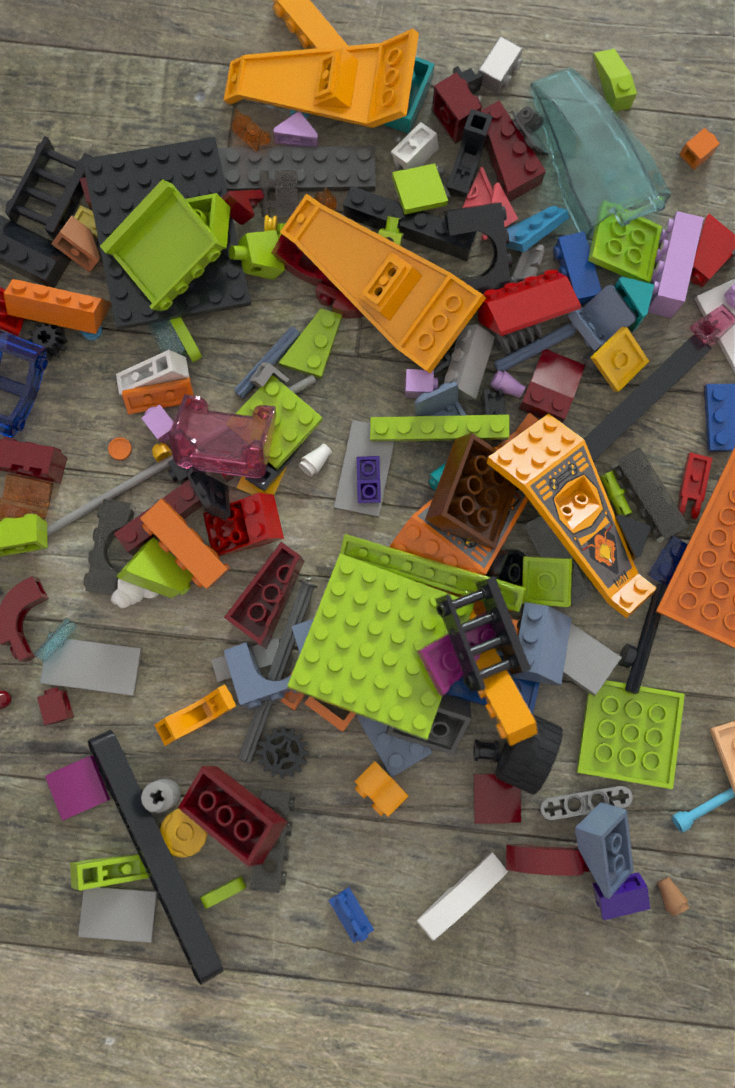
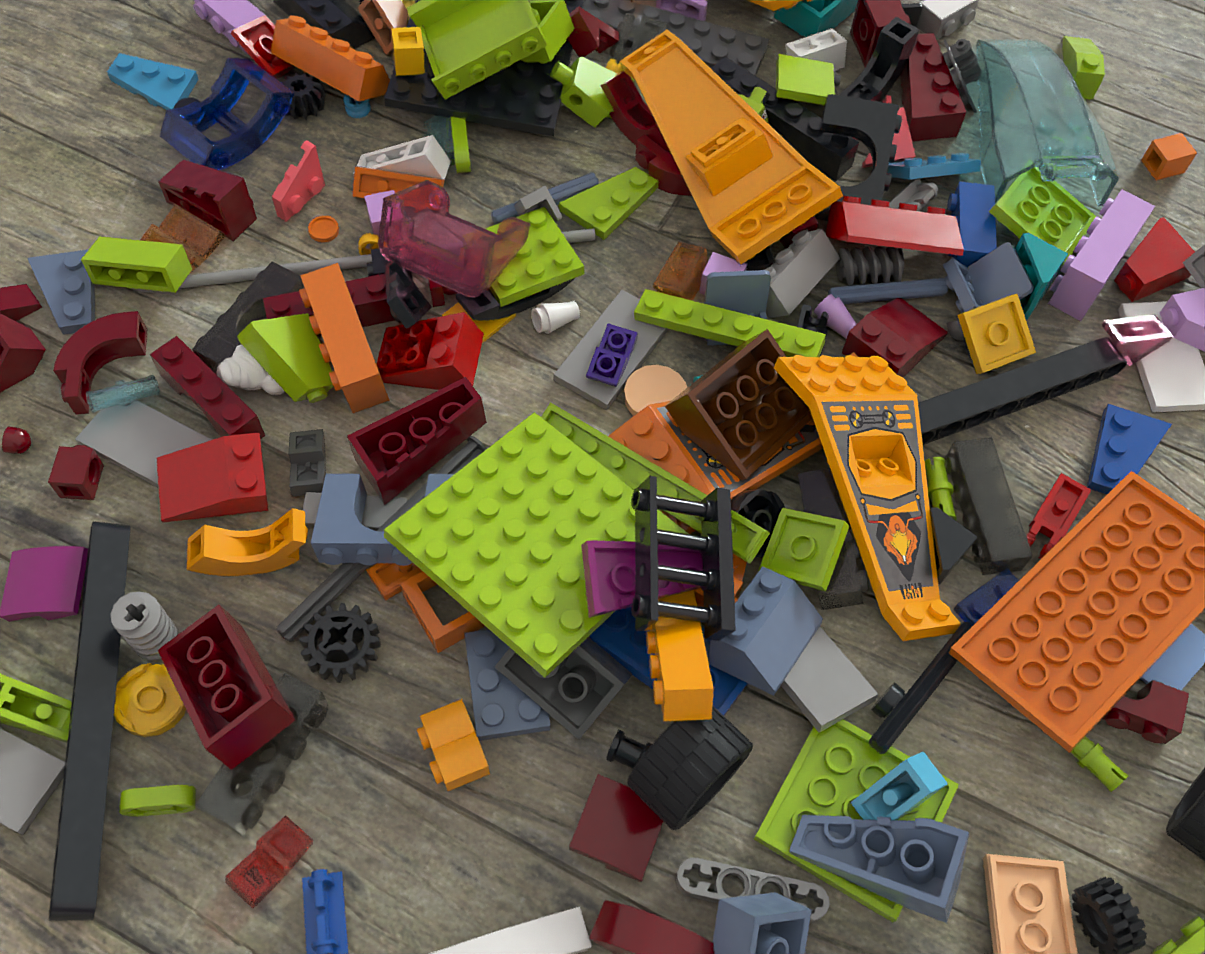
camera: 20 degrees right, 20 degrees down
(88, 424) = (299, 184): none -> coral wing
(110, 617) = (191, 376): none -> dark red arch
(118, 283) = (408, 51): none -> yellow panel
(147, 678) = (213, 479): none -> red slope
(200, 637) = (307, 461): none -> dark grey slope
(304, 898) = (270, 861): none -> clear red slope
(390, 393) = (682, 271): none -> clear orange hinge
(406, 493) = (651, 386): none -> light nougat tile
(654, 717) = (900, 789): none -> medium azure slope
(664, 757) = (897, 859): none -> sand blue wedge

